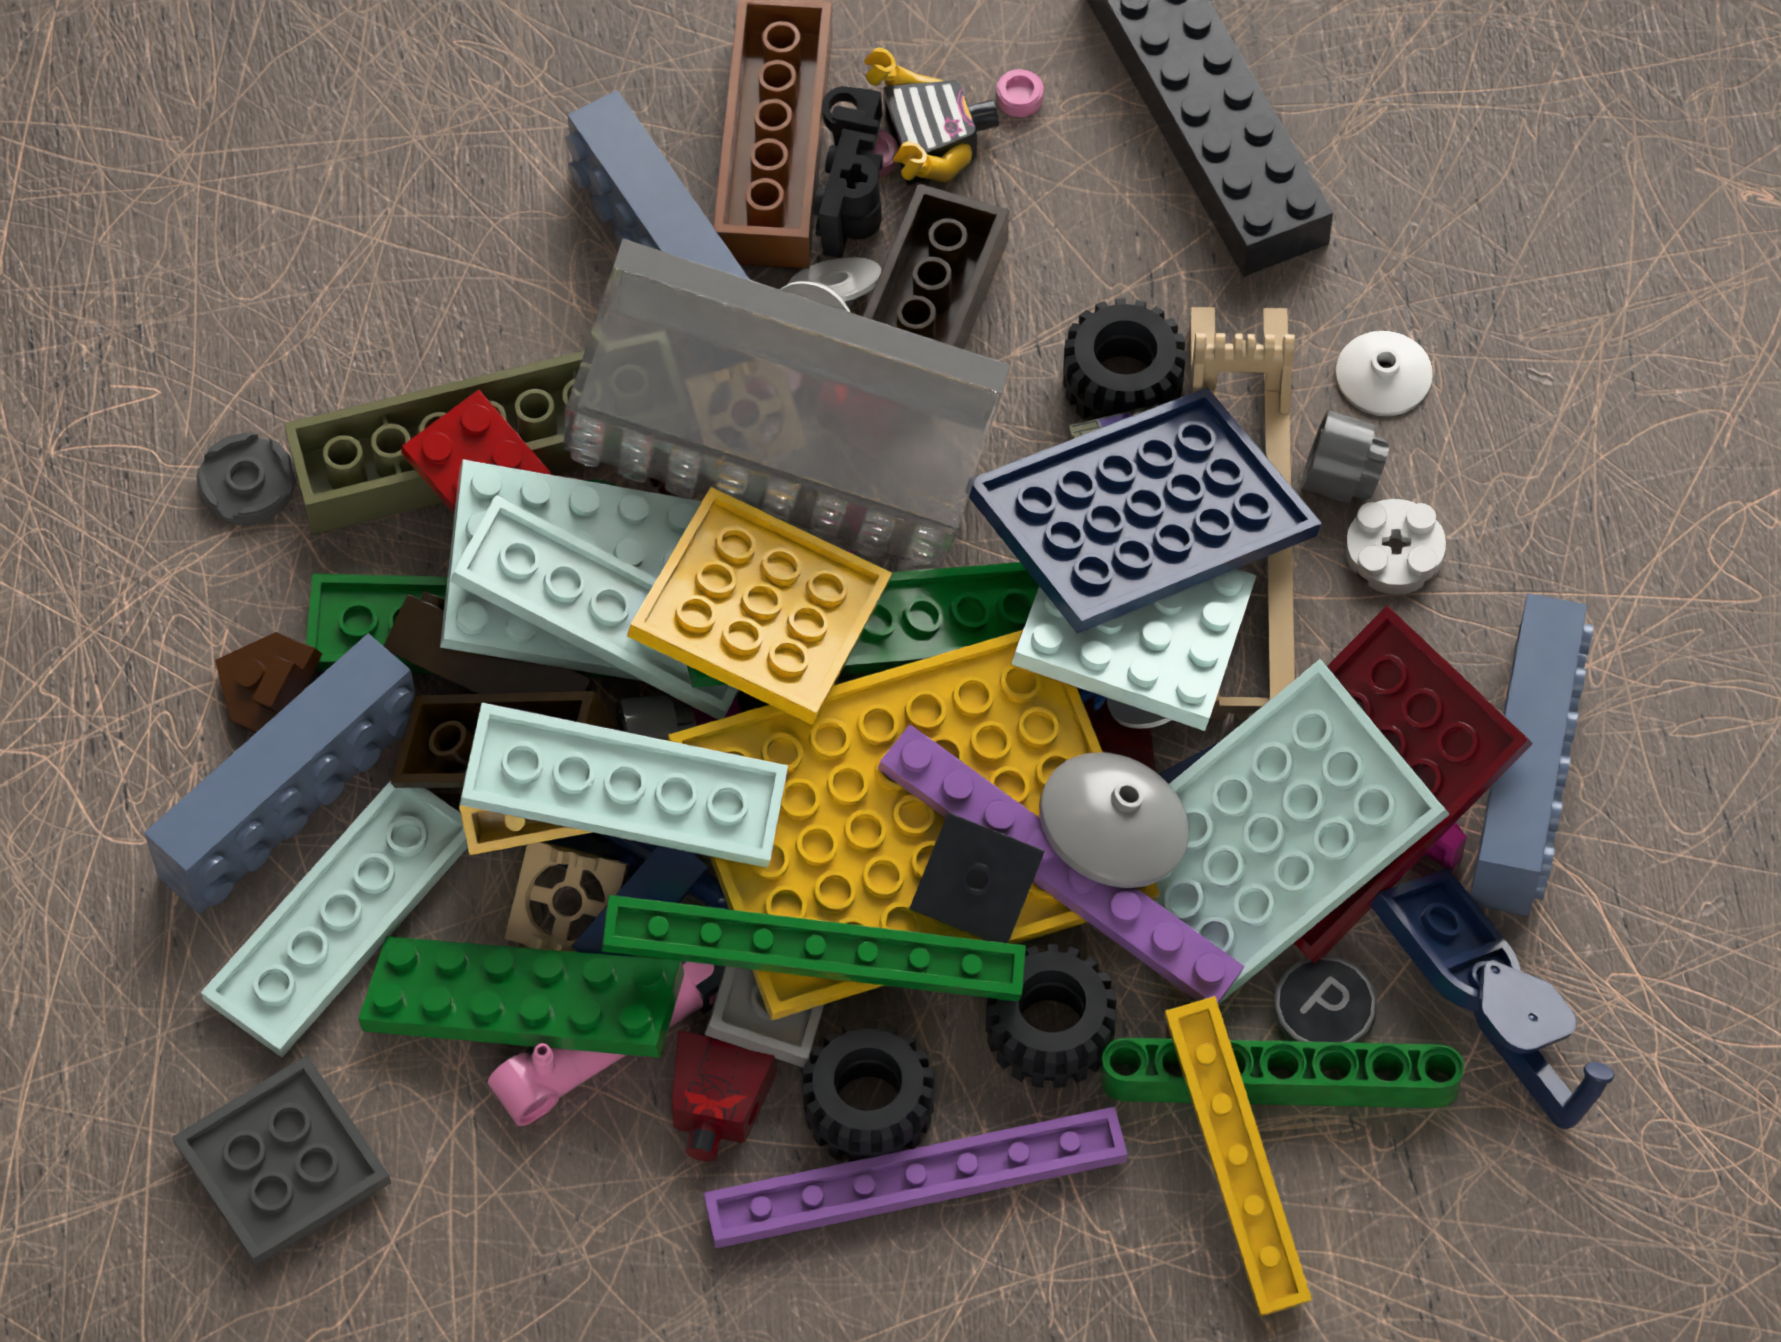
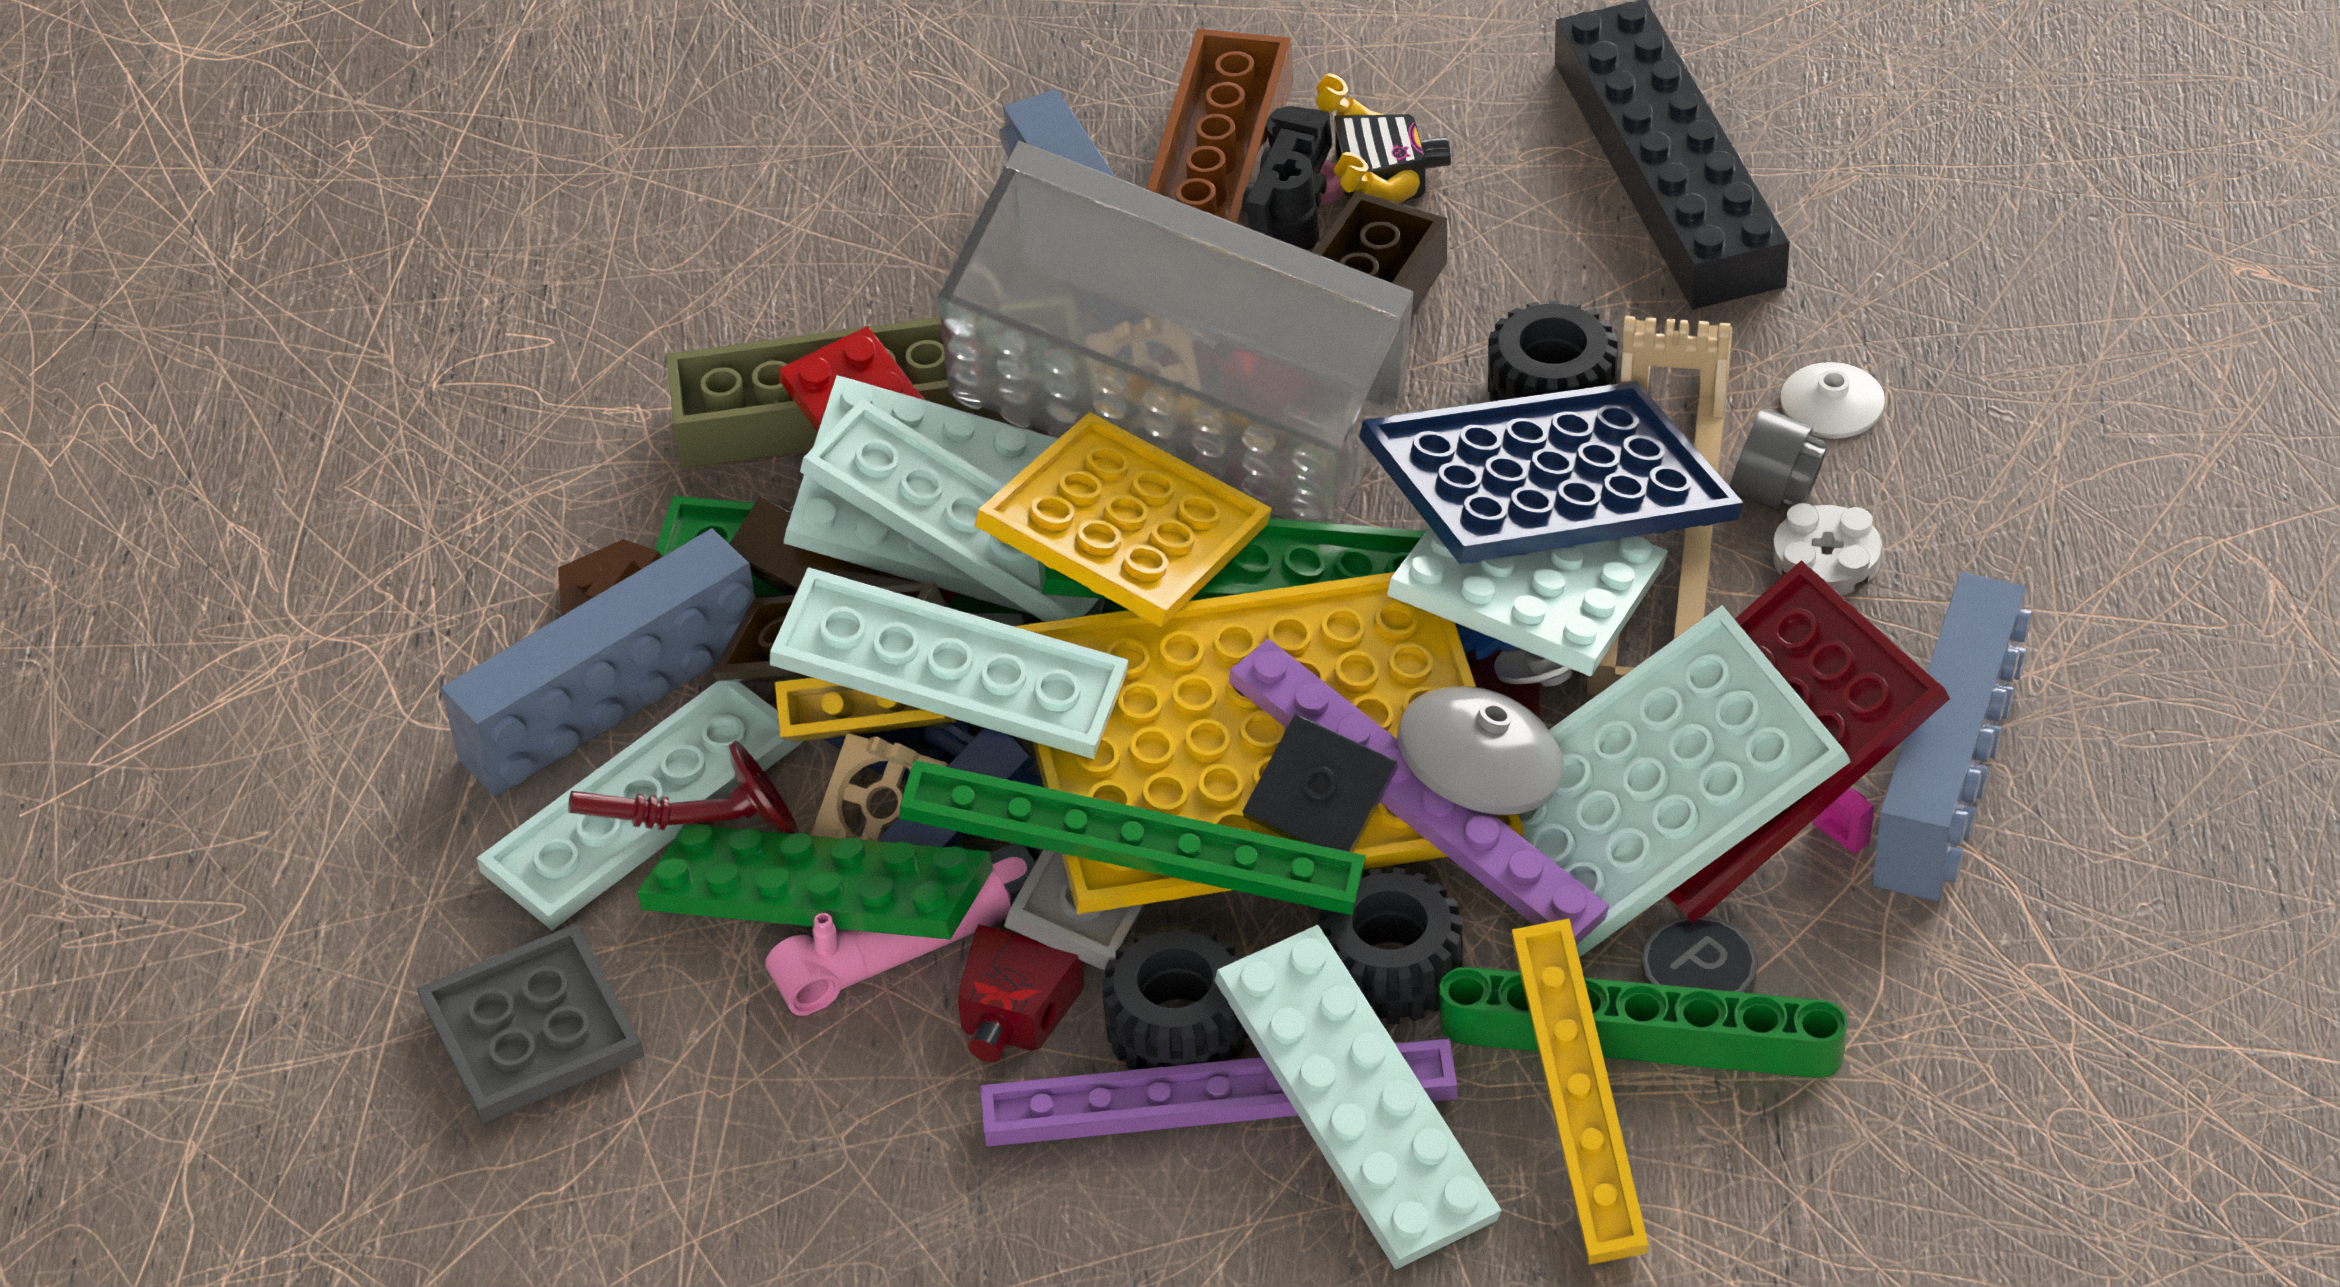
camera: 10 degrees right, 15 degrees down
(246, 479) = (623, 418): dark grey tile -> none
(447, 908) = (751, 796): none -> dark red dish
(1019, 93) = (1477, 140): bright pink tile -> none
(1041, 1177) = (1357, 1097): none -> light aqua plate
(1480, 972) = (1905, 976): dark blue plate -> none

